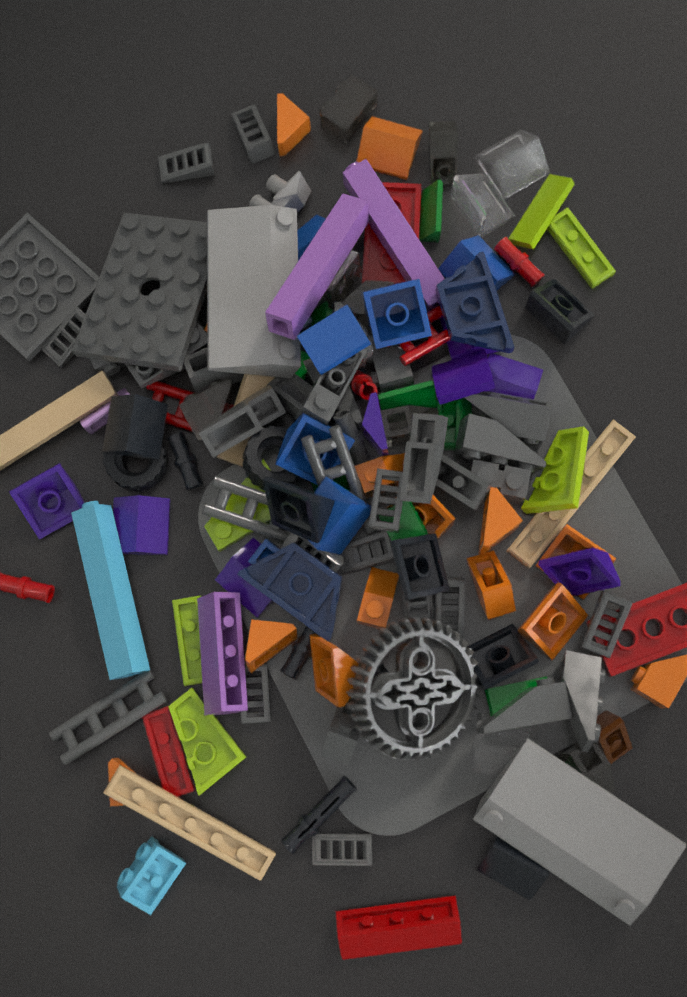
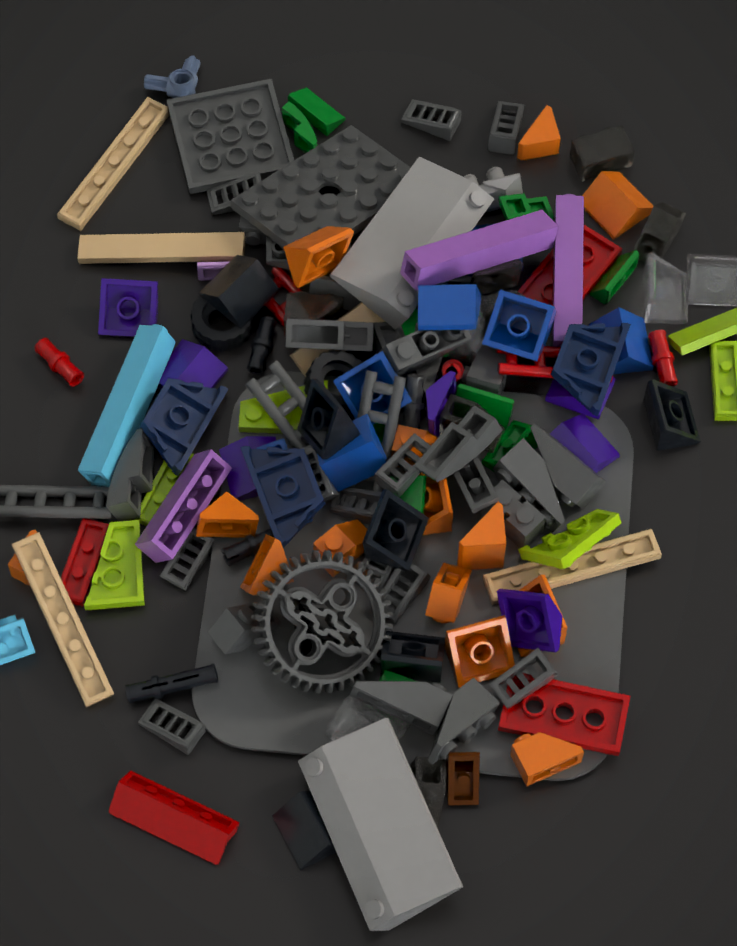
camera: 25 degrees right, 15 degrees down
(83, 218) = (316, 110): none -> green slope
(89, 246) = (303, 133): none -> green slope
(159, 653) = (131, 478): none -> dark grey slope
(164, 575) = (180, 419): none -> dark blue wing
(183, 356) = (317, 253): none -> orange slope
(320, 201) = (519, 205): none -> green slope
(462, 377) = (541, 412): dark purple slope -> none

